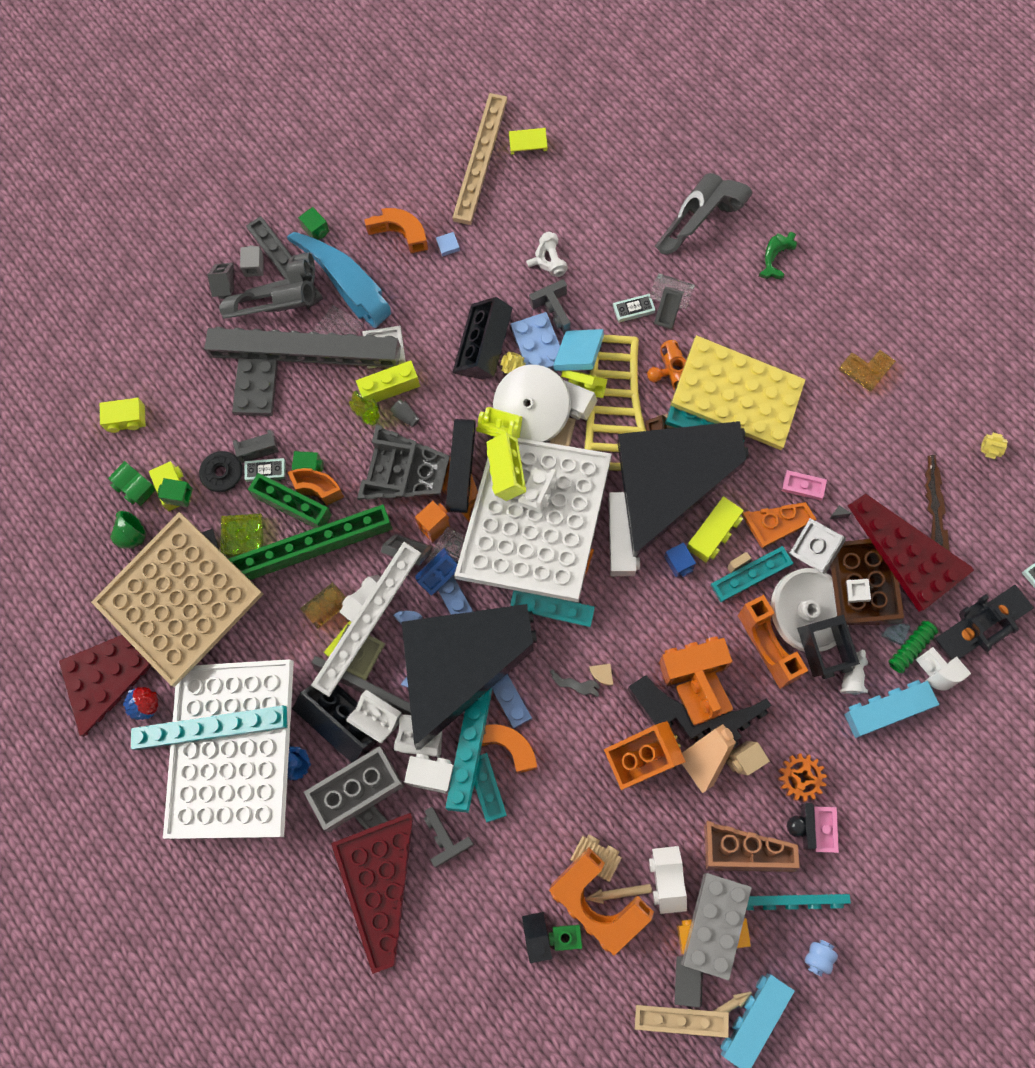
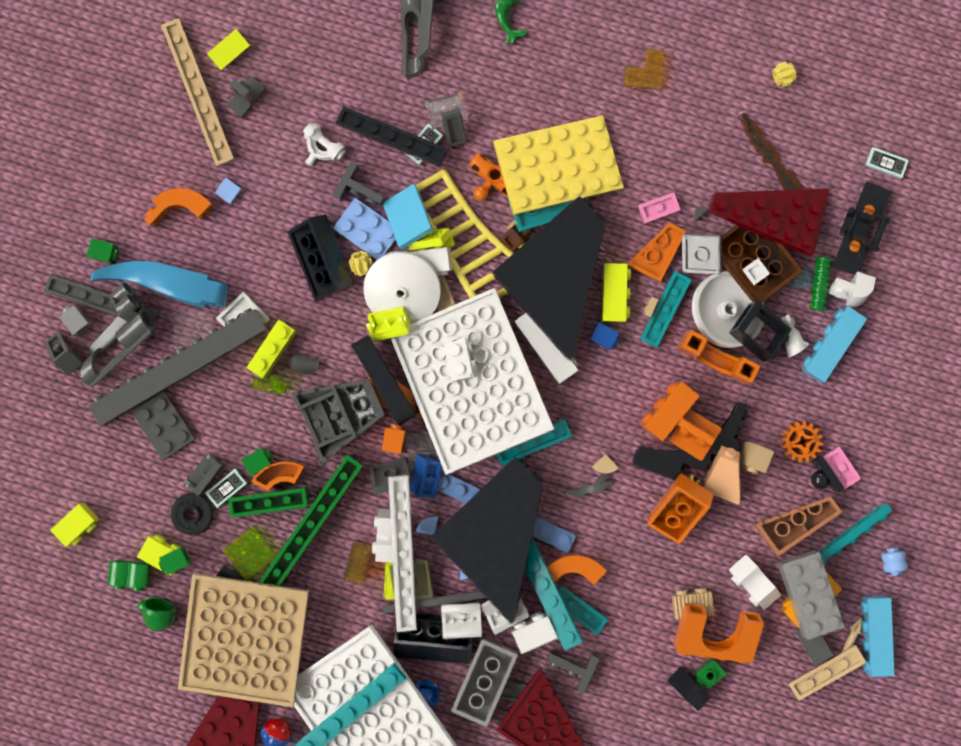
camera: 40 degrees left, 15 degrees up
(505, 466) = (422, 359): neon yellow brick -> none
(518, 182) = (246, 95): none -> dark grey bracket
(600, 896) = (713, 628): tan piece -> none
(612, 284) = (391, 137): none -> black plate

